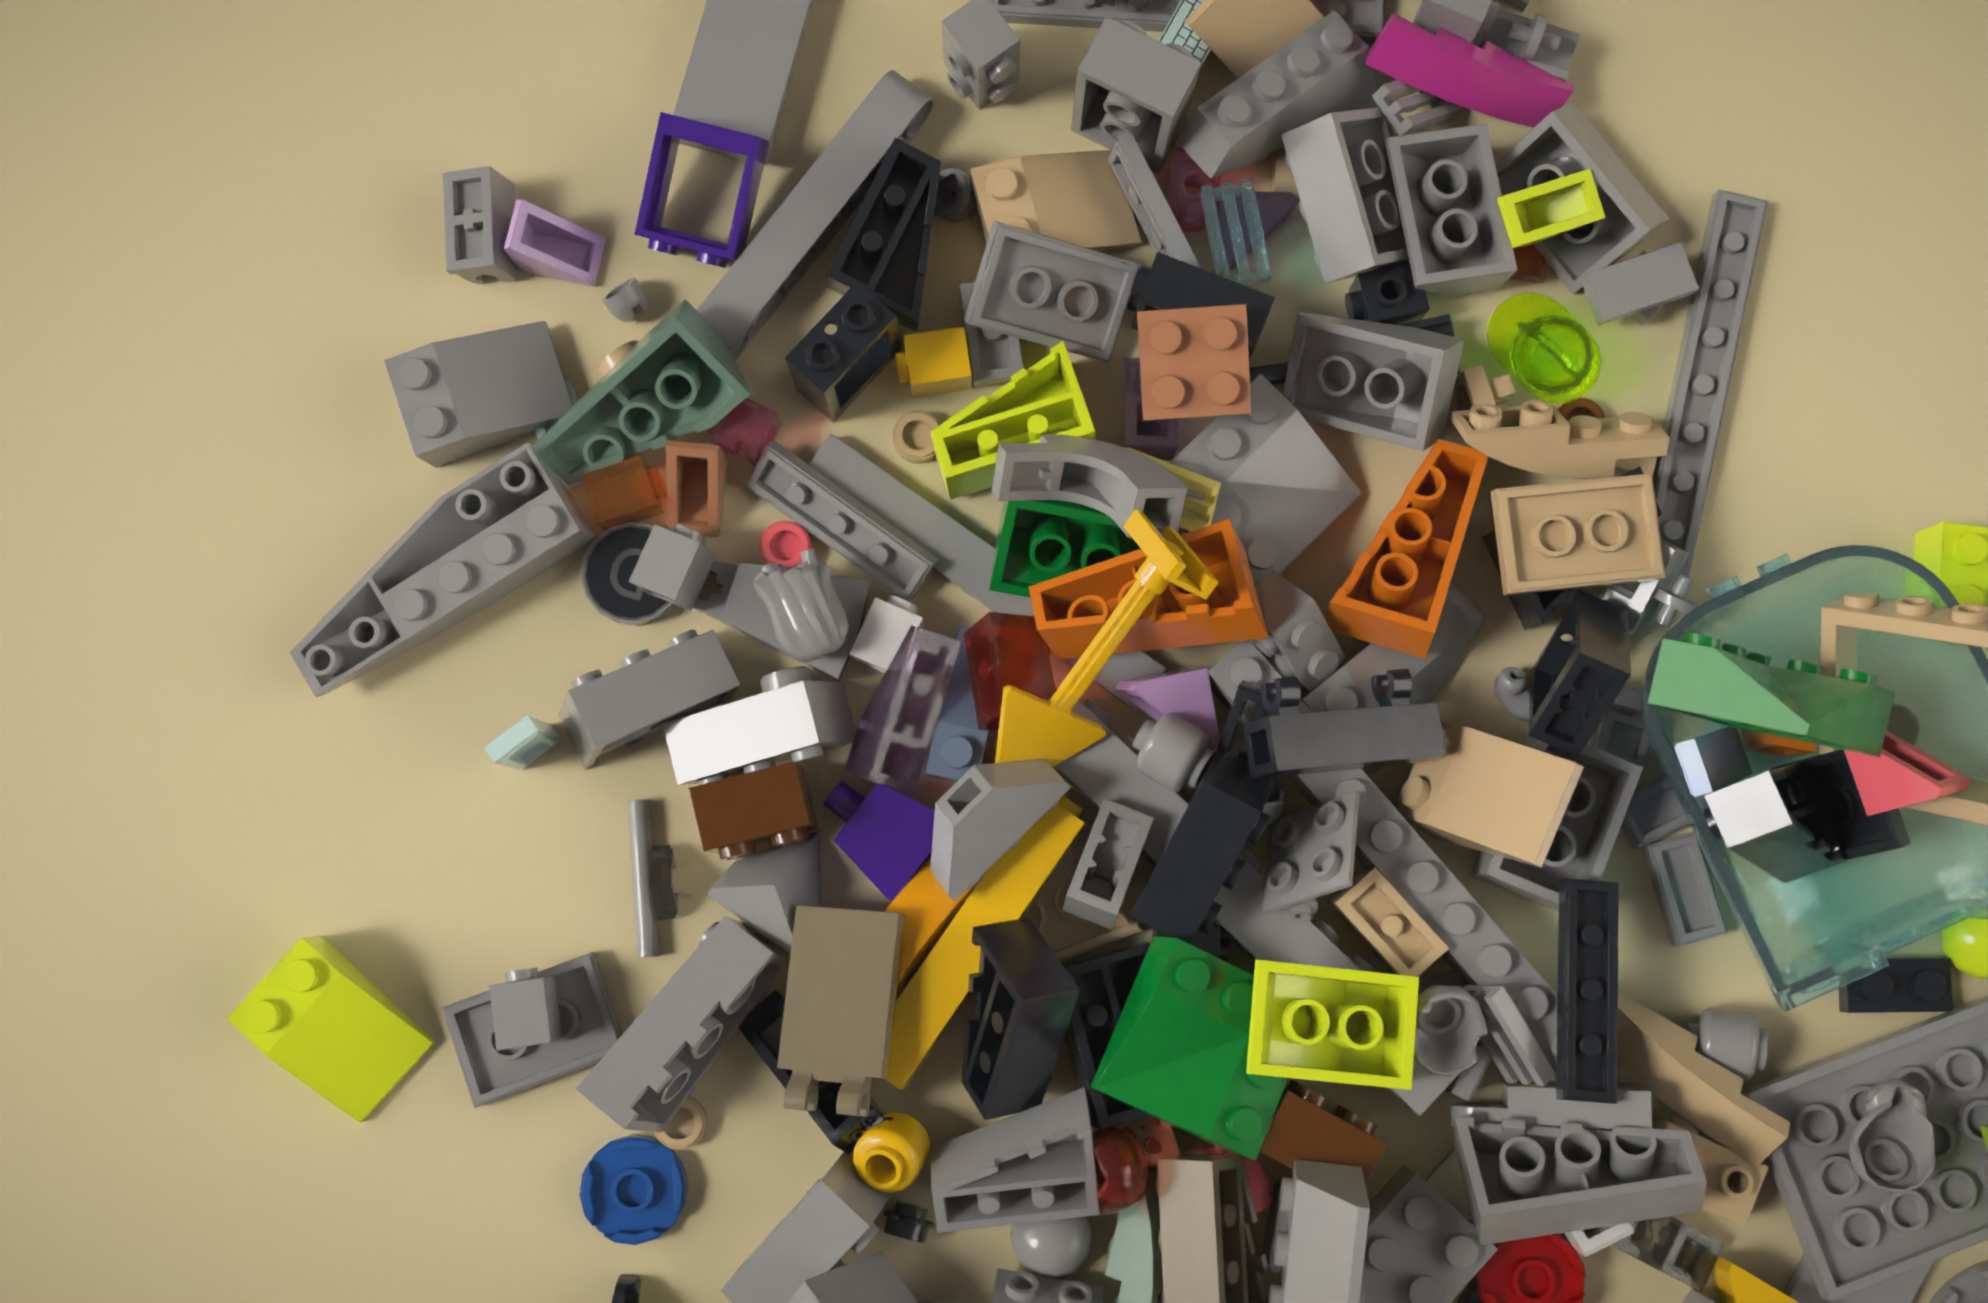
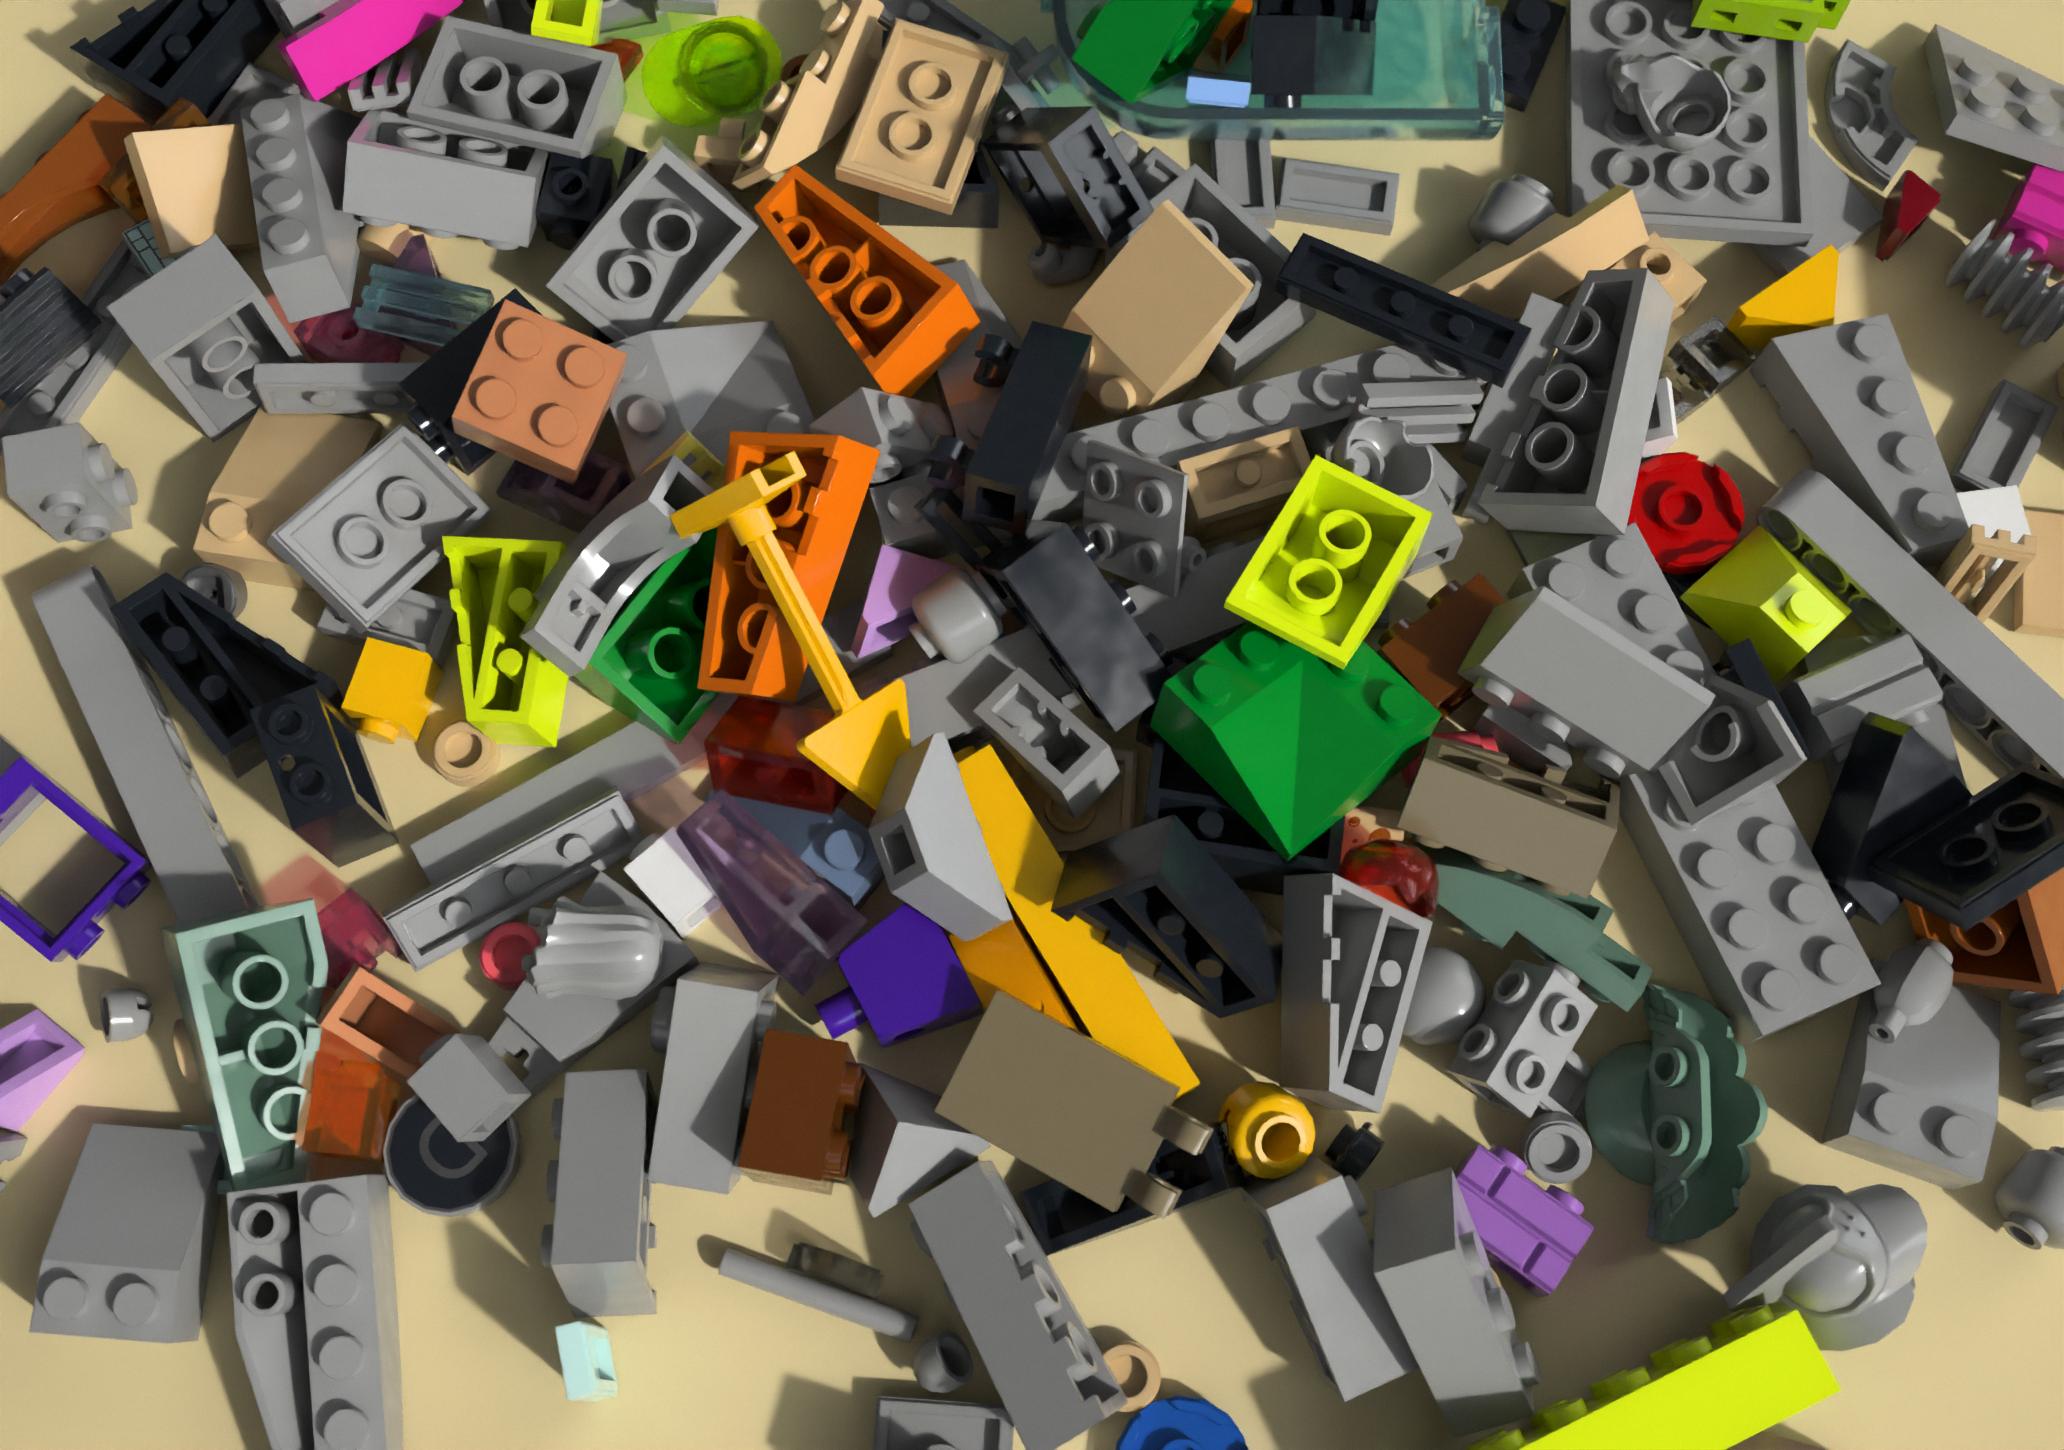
camera: 65 degrees left, 10 degrees down
(632, 988) = (942, 1363): none -> light grey hinge

